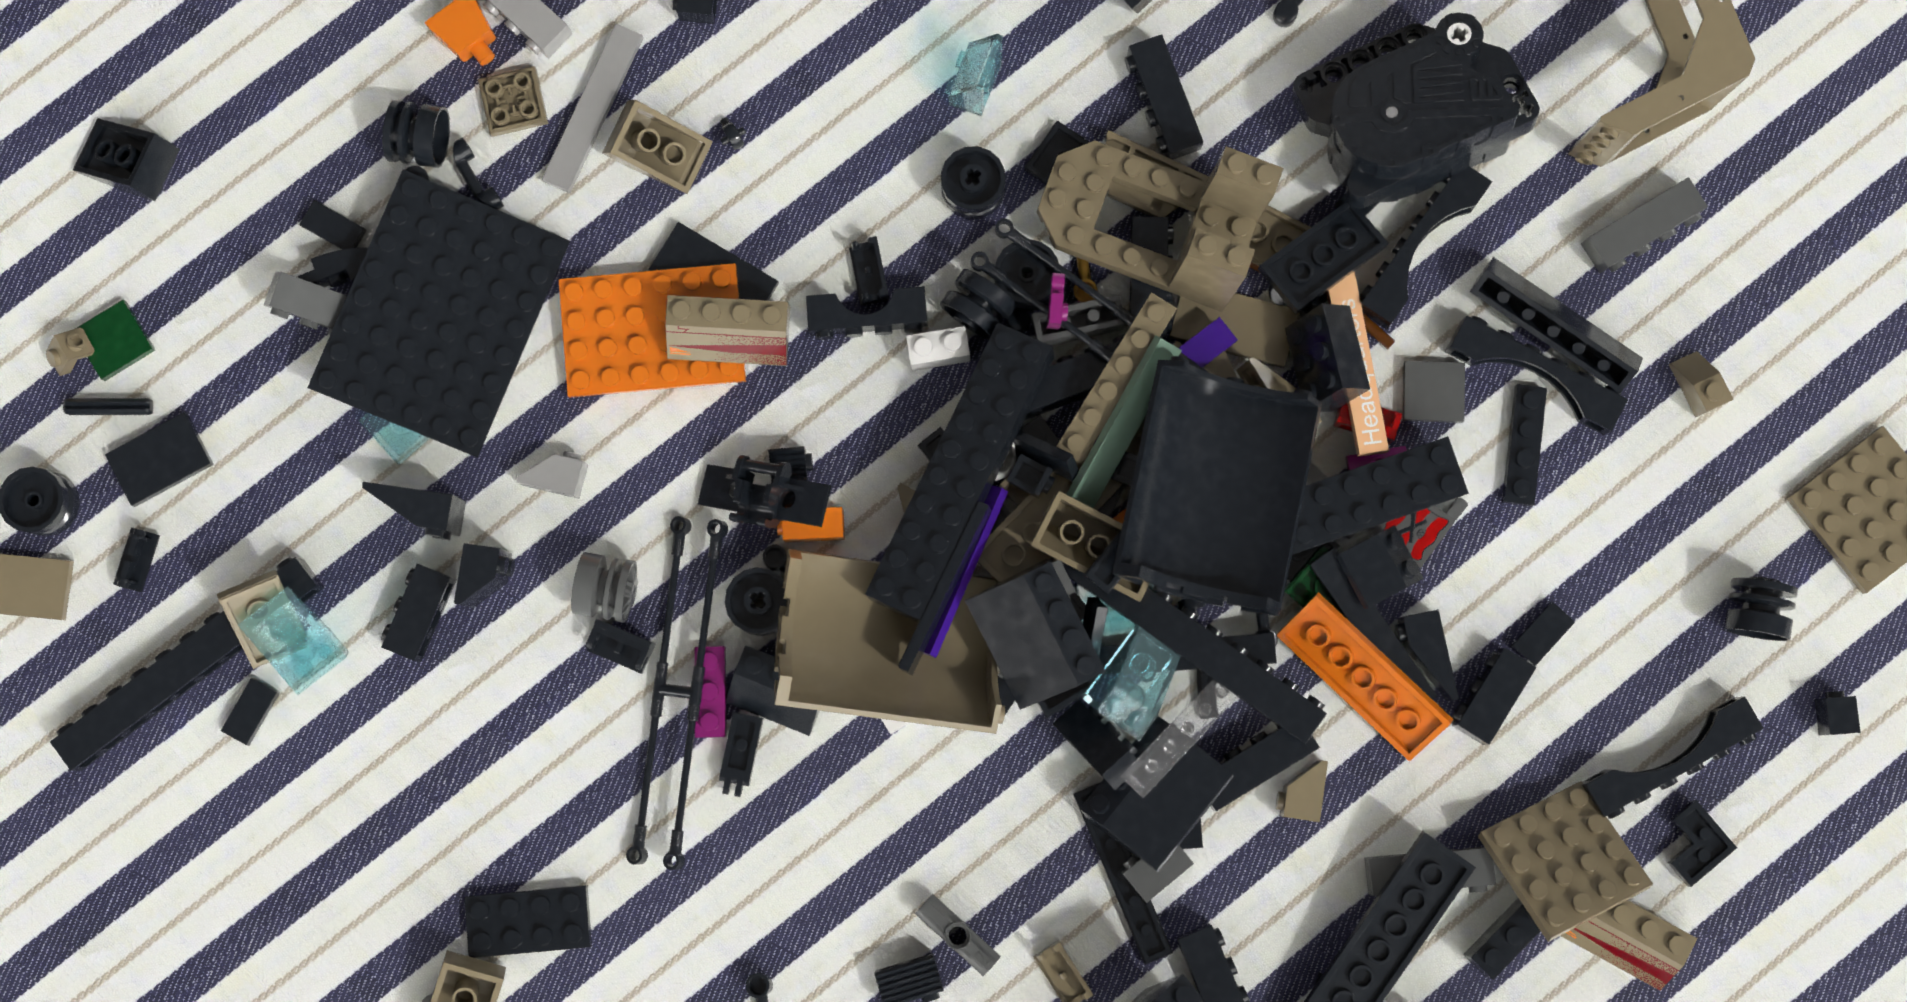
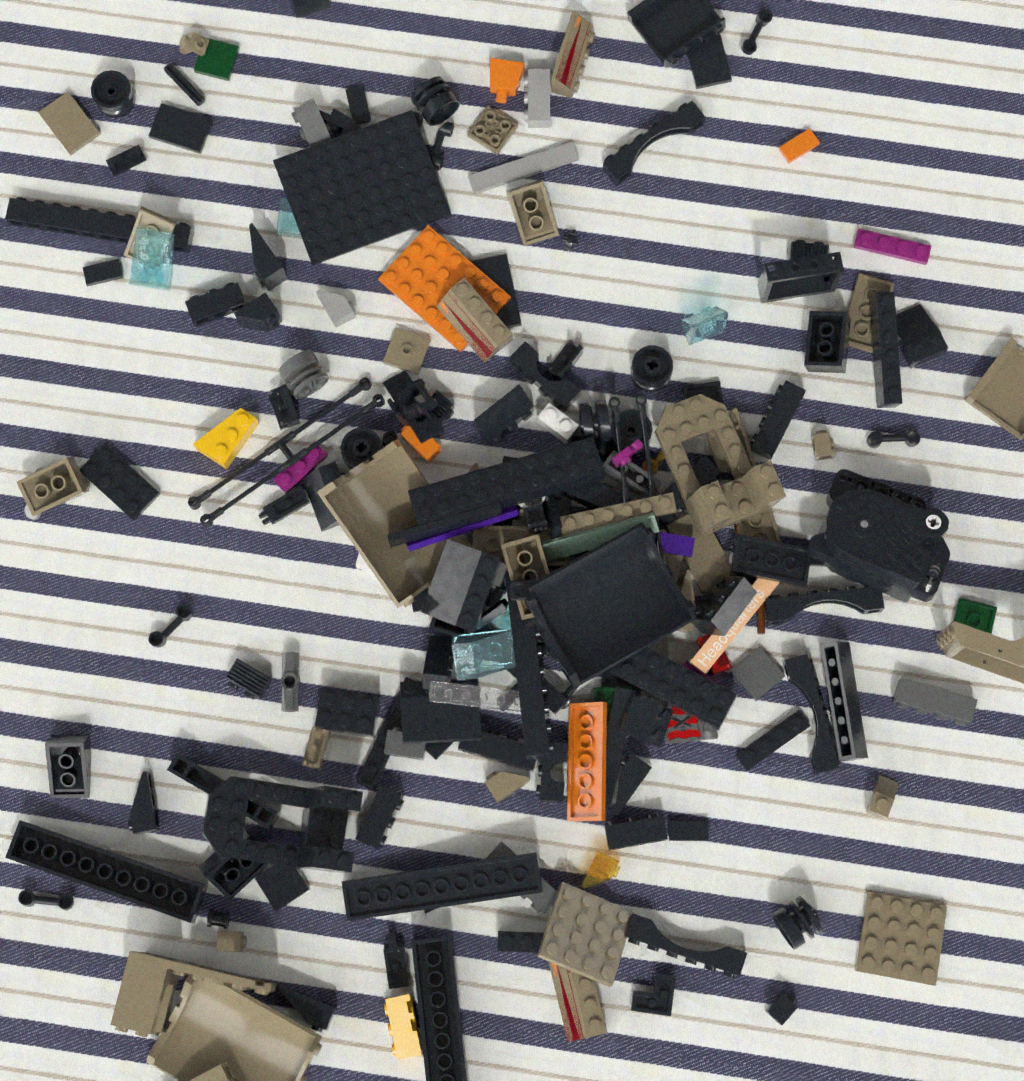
camera: 45 degrees right, 5 degrees down
(596, 746) = (227, 438): none -> yellow wedge
(686, 442) = (407, 351): none -> dark tan plate
(873, 401) = (504, 416): none -> black slope
(1056, 901) = (347, 712): none -> black brick
(1240, 76) = (823, 445): none -> dark tan brick
(1356, 748) = (550, 789): none -> black arch
(1501, 776) = (601, 870): none -> clear yellow slope
(1588, 96) = (975, 614): none -> dark green tile

